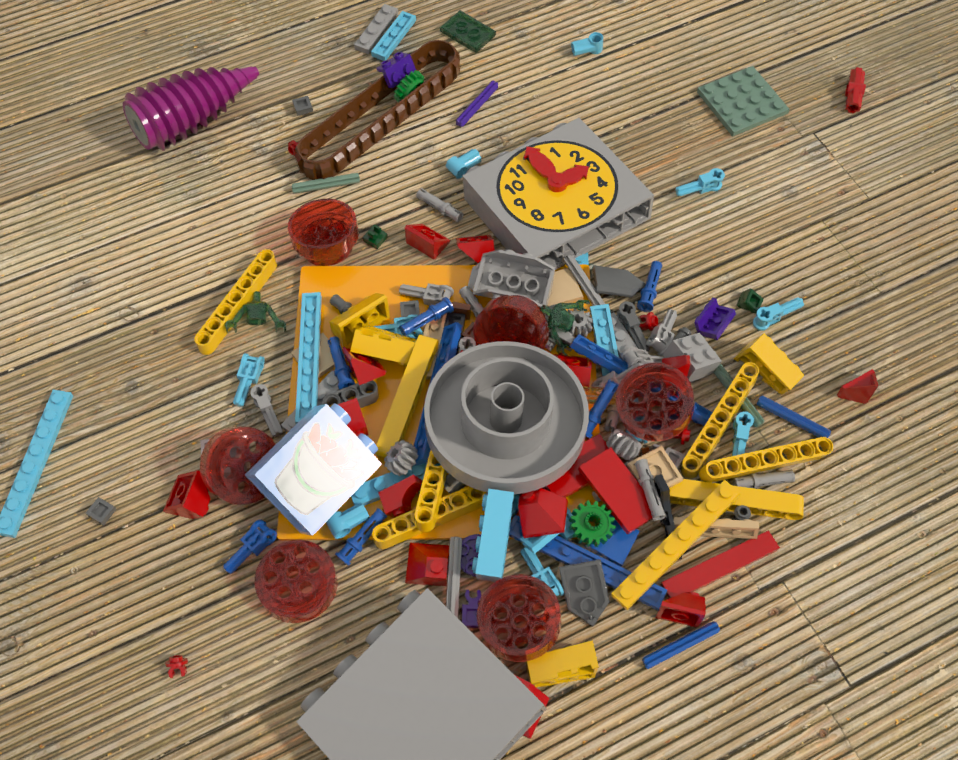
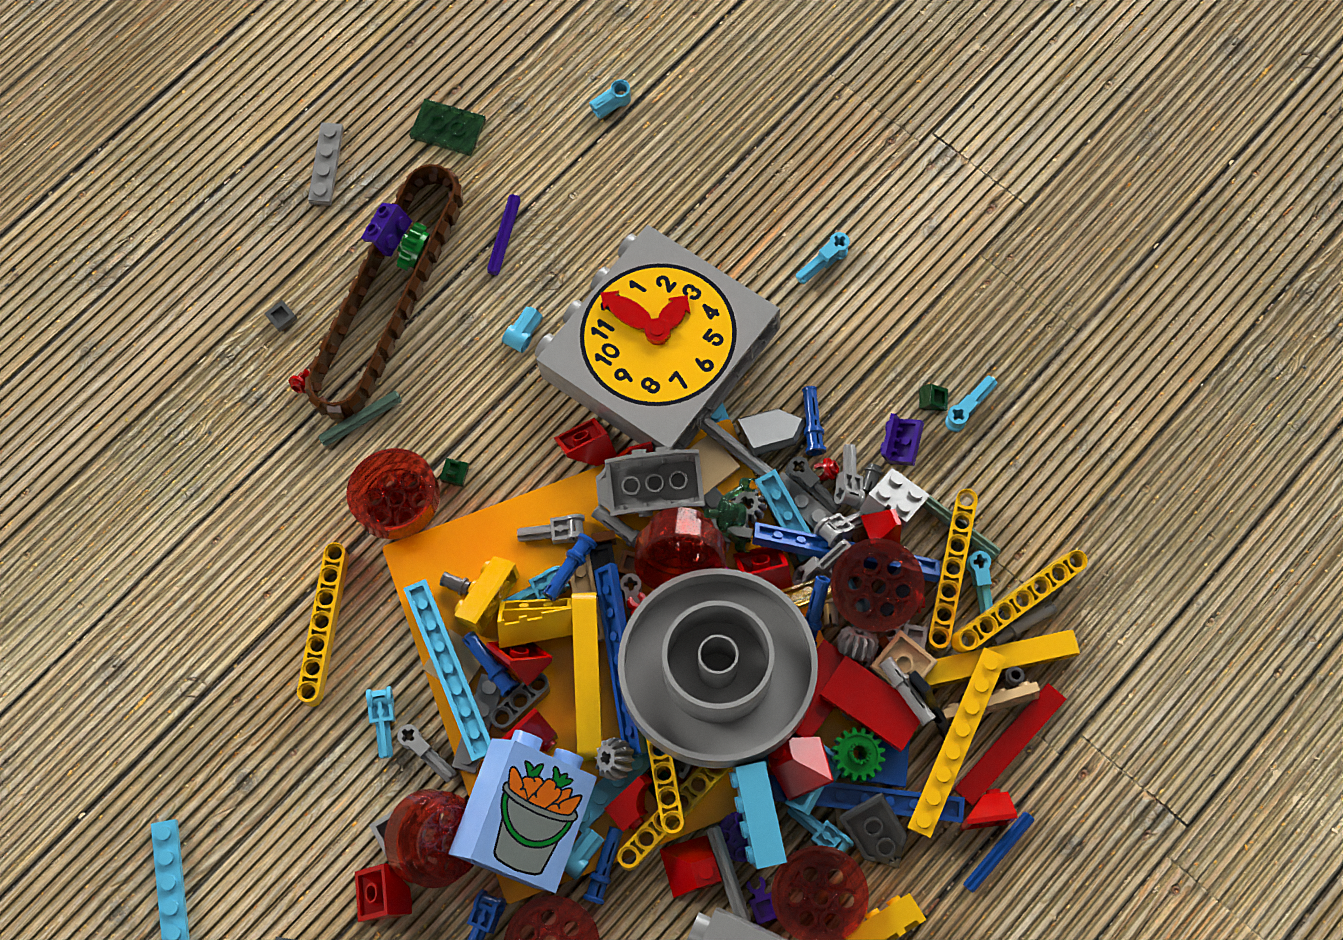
camera: 20 degrees left, 10 degrees up
(182, 103) = (130, 376): magenta cone -> none
(256, 314) = (355, 631): clear green piece -> none
(393, 36) = (354, 168): medium azure plate -> none
(409, 308) = (541, 560): dark grey plate -> none
(425, 239) = (520, 453): red slope -> none
(445, 208) = (518, 400): light grey pin -> none
(742, 100) = (832, 116): sand green plate -> none
(772, 364) = (985, 475): yellow wedge -> none
(793, 417) = (1030, 532): blue axle -> none
(855, 90) = (964, 55): red piece -> none
(860, 388) = (1095, 469): red slope -> none

